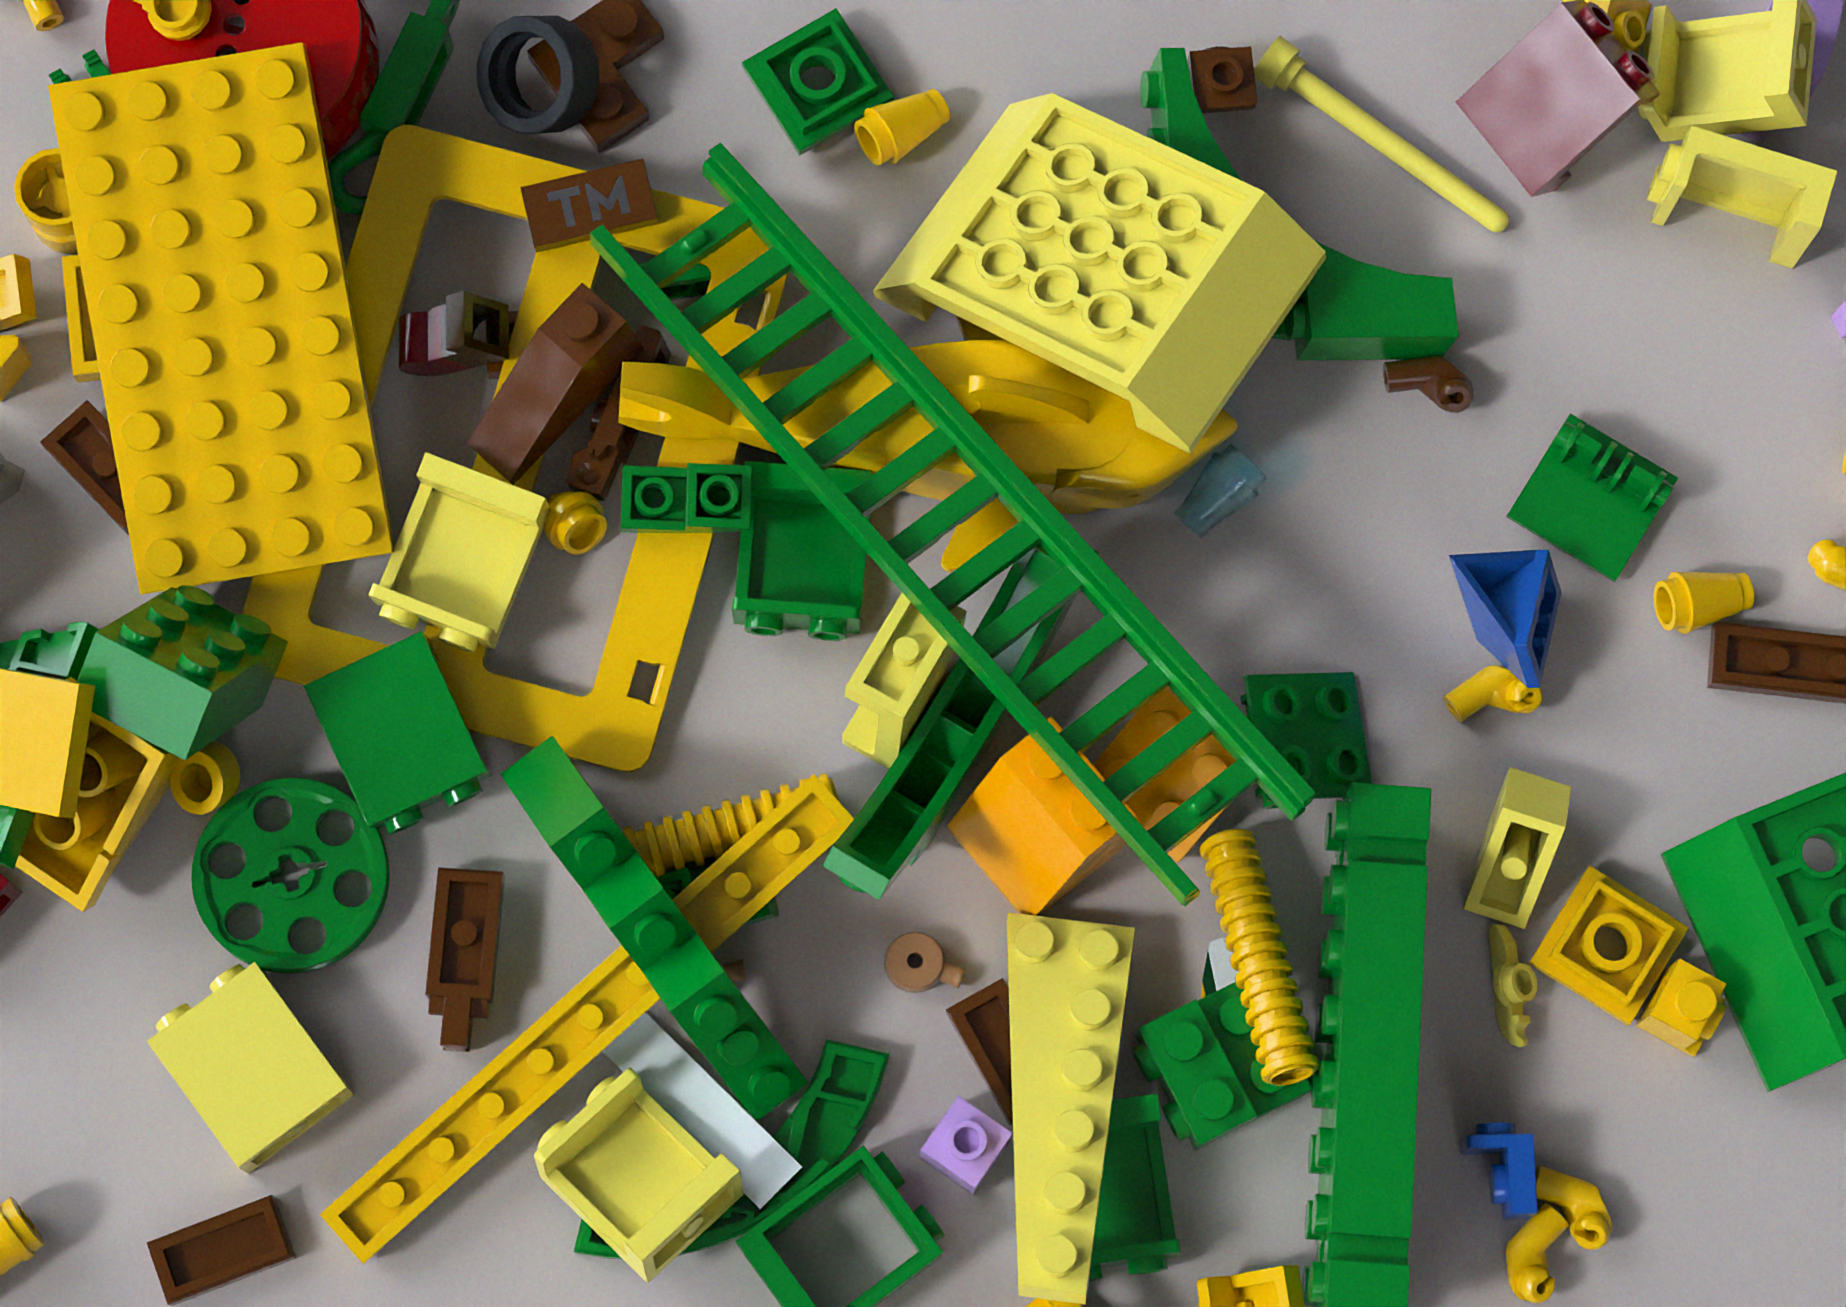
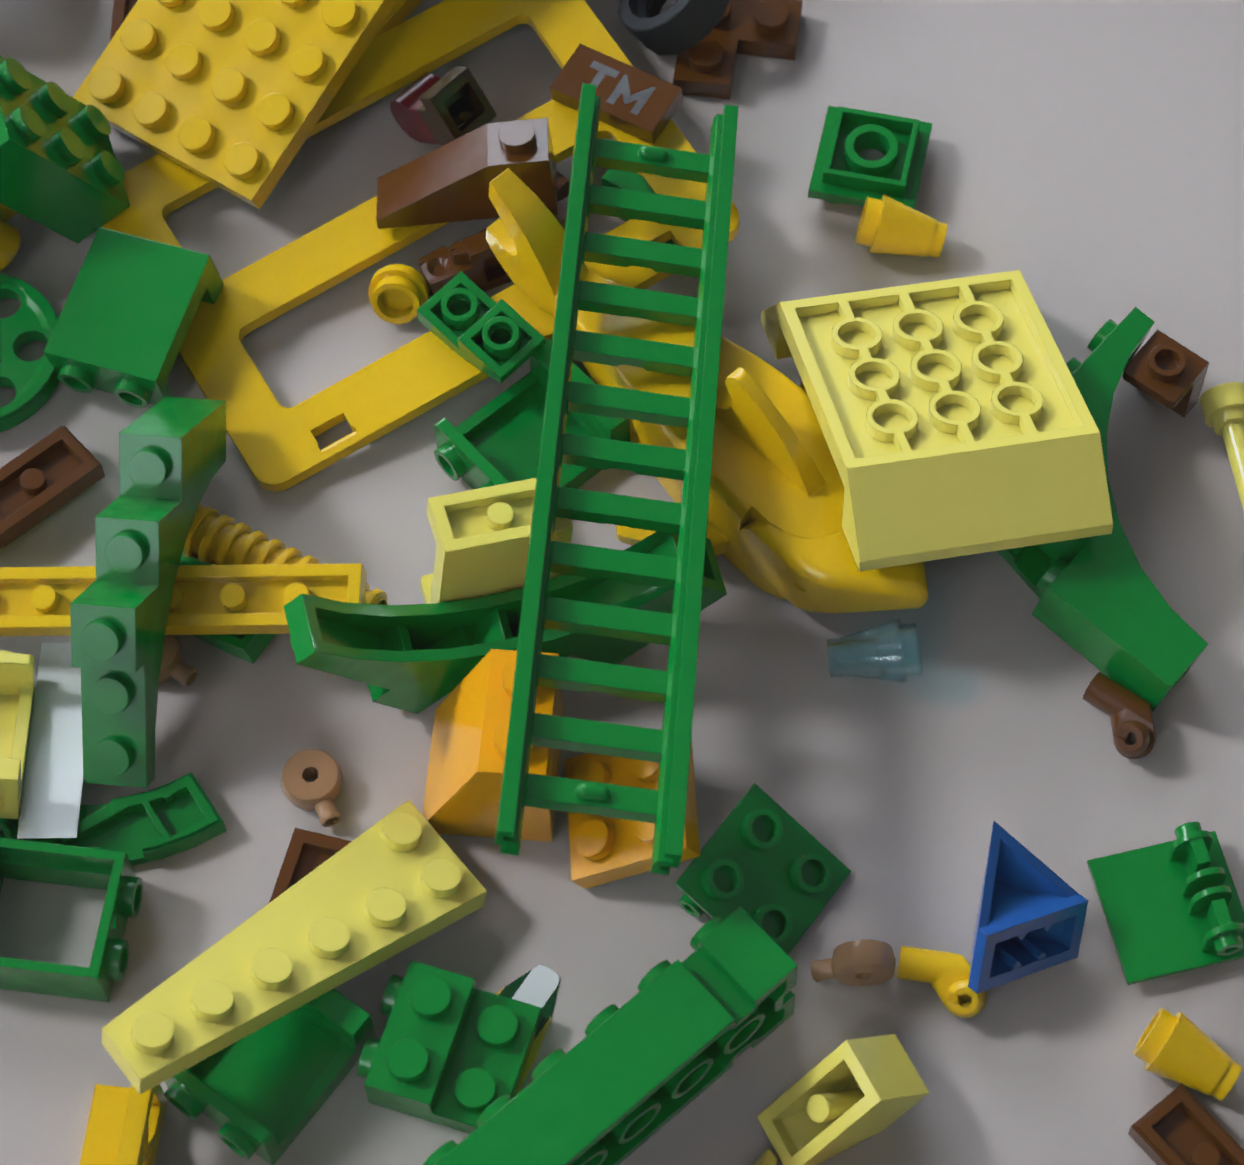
camera: 50 degrees right, 15 degrees down
(460, 554) = (296, 243): light yellow panel -> none
(965, 1145) = (195, 918): lavender brick -> none
(1259, 957) = (551, 991): yellow piece -> none
(1428, 739) = (857, 963): none -> medium nougat piece

